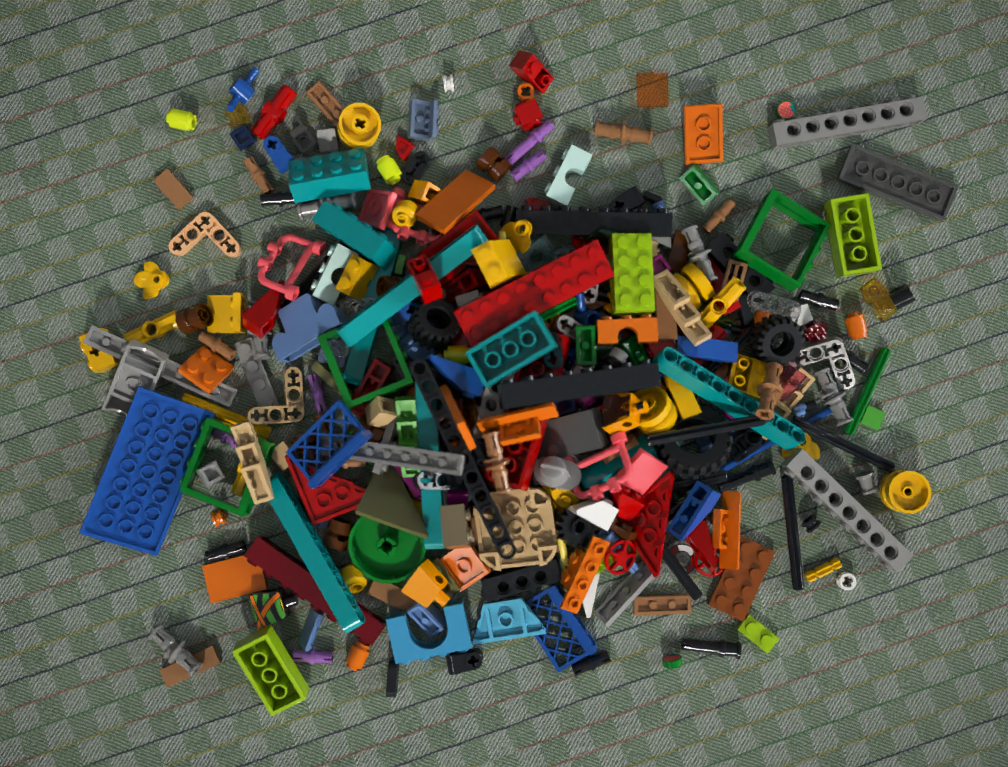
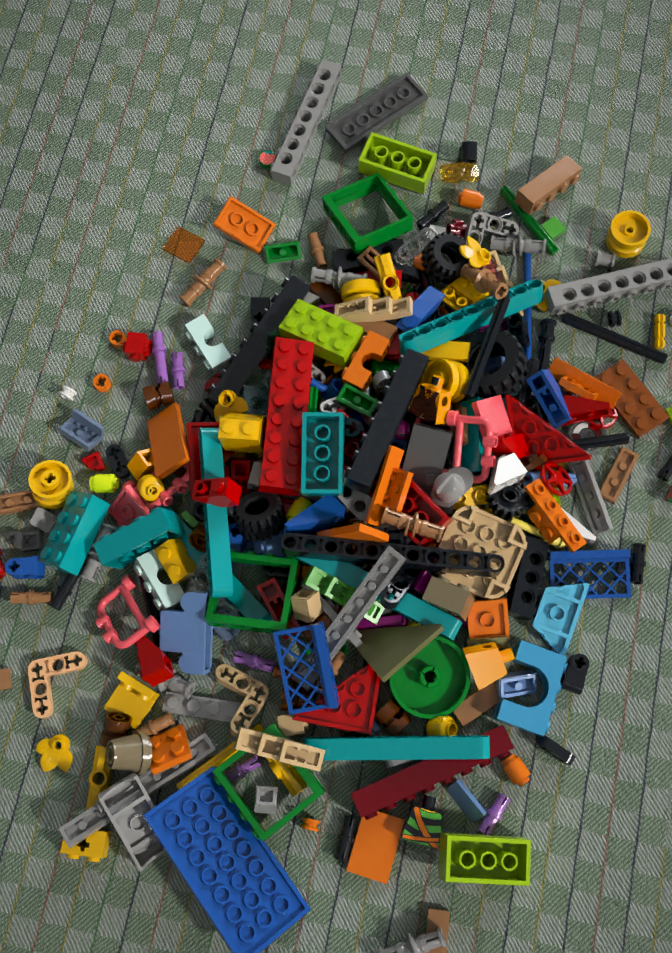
camera: 50 degrees left, 15 degrees down
(181, 343) = (130, 753): none -> dark tan piece
(325, 373) = (246, 641): olive beam -> none
(479, 111) = (99, 377): none -> orange bush
(531, 70) = (101, 323): red slope -> none
(655, 200) = (270, 291): black arm -> none
(795, 365) = (476, 255): none -> yellow plate
(800, 409) = (514, 274): arm -> none
(843, 444) = (563, 258): black axle -> none
(912, 390) = (548, 184): none -> medium nougat brick

